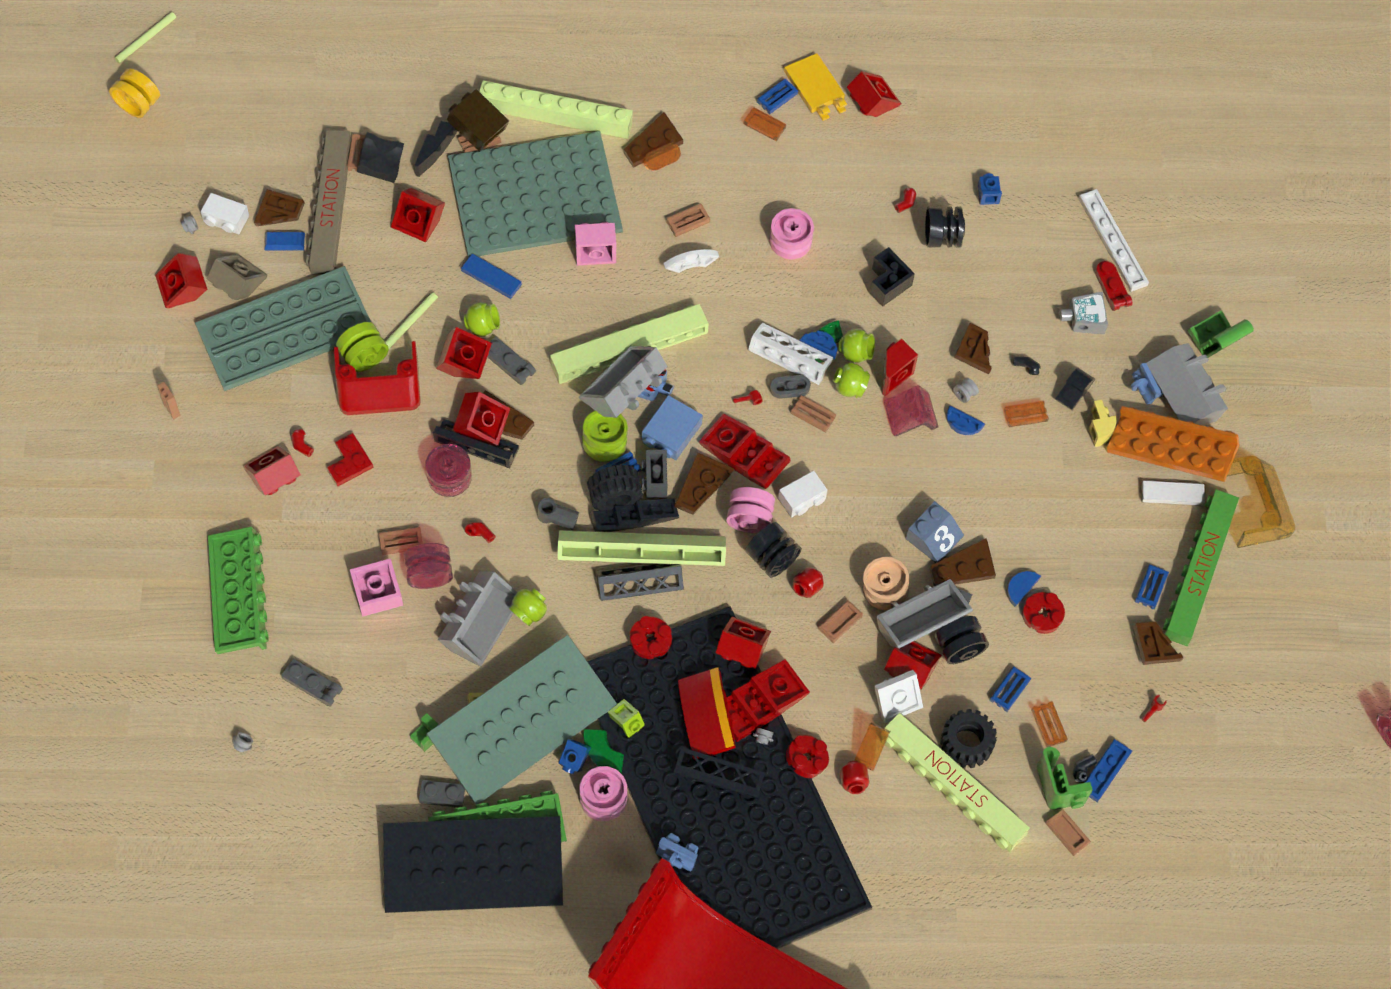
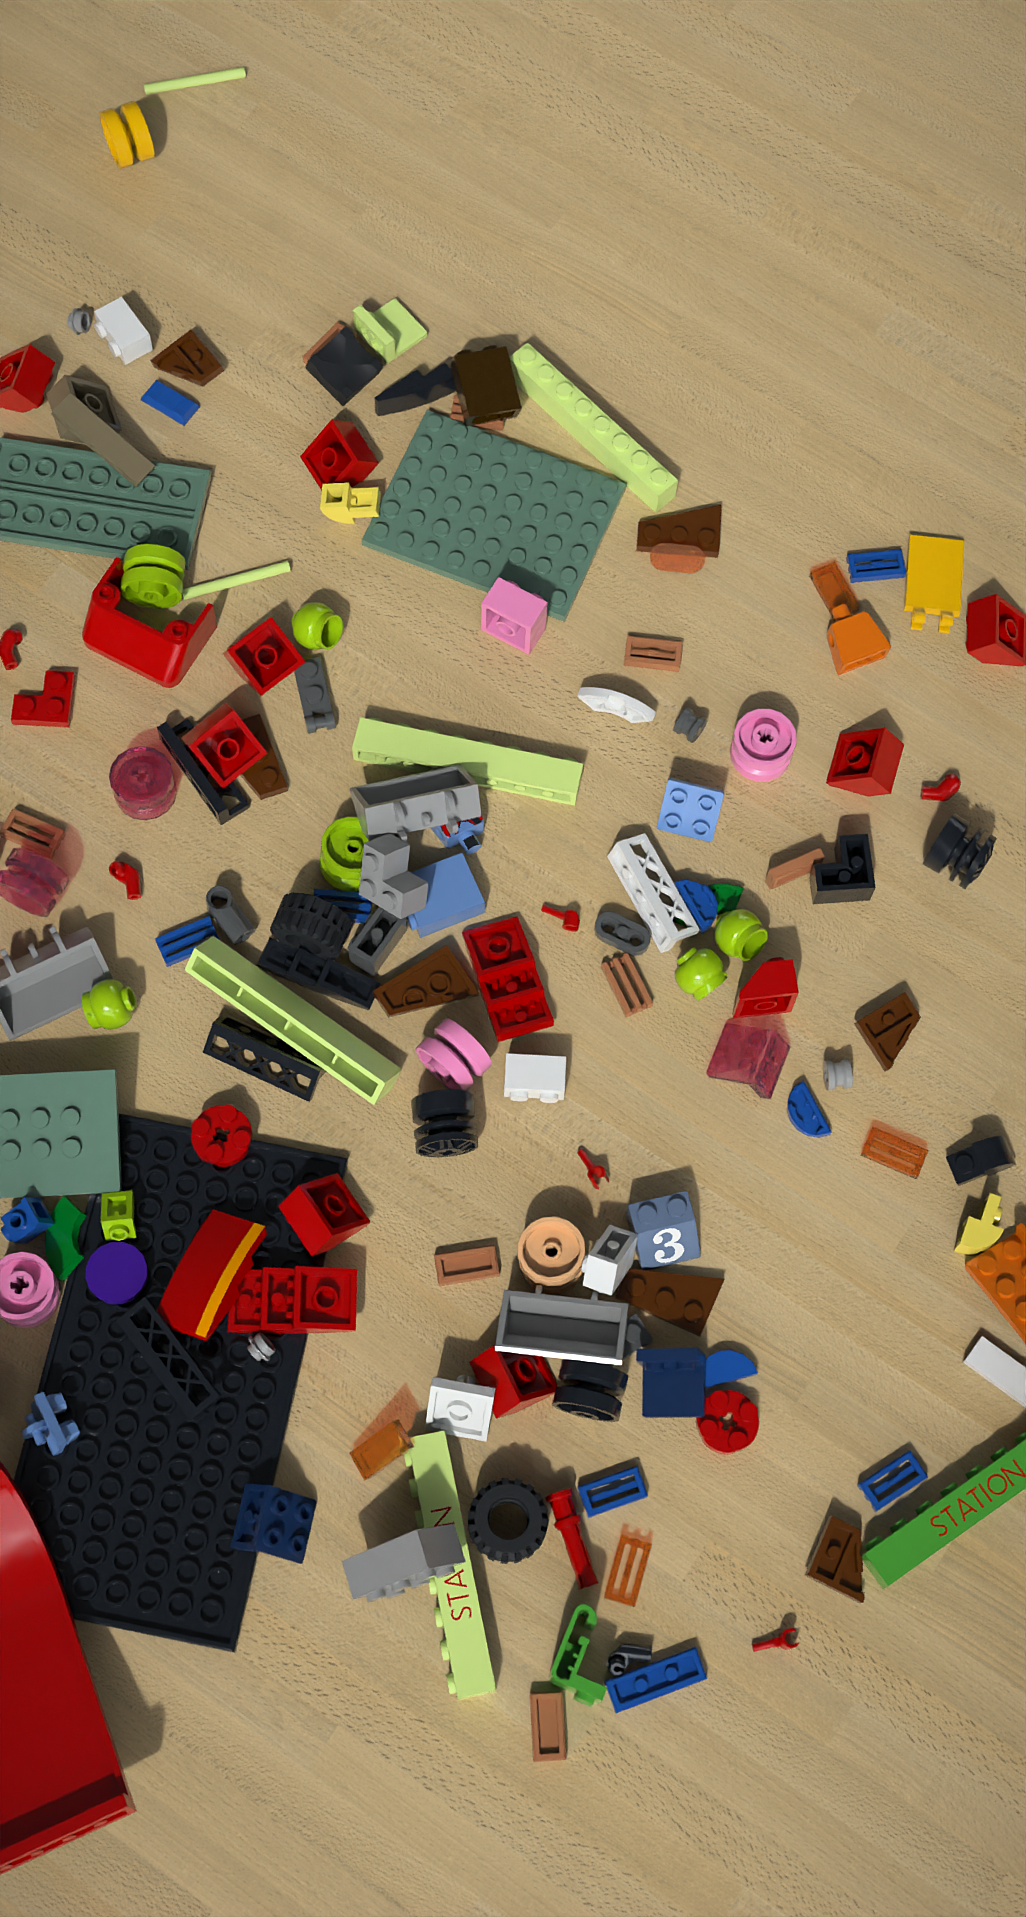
camera: 35 degrees right, 5 degrees up
(269, 284) = (103, 440): none -> dark tan tile
(330, 202) = (249, 387): dark tan brick -> none
(388, 121) = (388, 330): none -> yellowish green bracket
(443, 237) = (347, 503): none -> light yellow brick
(491, 276) = (370, 583): blue tile -> none
(552, 530) = (180, 933): none -> blue tile
(641, 434) = (387, 880): none -> light grey brick
(649, 750) = (116, 1273): none -> dark purple tile
(741, 247) = (690, 725): none -> dark grey wheel
(778, 293) = (690, 809): none -> medium blue bracket
(798, 144) = (855, 640): none -> orange torso
(808, 582) = (460, 1191): red head -> none
(815, 748) = (279, 1408): red plate -> none
(840, 824) = (273, 1522): none -> dark blue bracket
(854, 209) = (866, 762): none -> red slope
(854, 777) = (333, 1473): red head -> none
(859, 292) = (793, 869): none -> nougat tile
(872, 525) = (594, 1171): none -> red hand
(920, 564) = (609, 1260): none -> white brick
(934, 792) = (404, 1563): none -> light grey brick
(1000, 609) = (672, 1382): none -> dark blue bracket
(1001, 720) = (568, 1523): none -> red pin
(1027, 362) = (945, 1089): black arm -> none

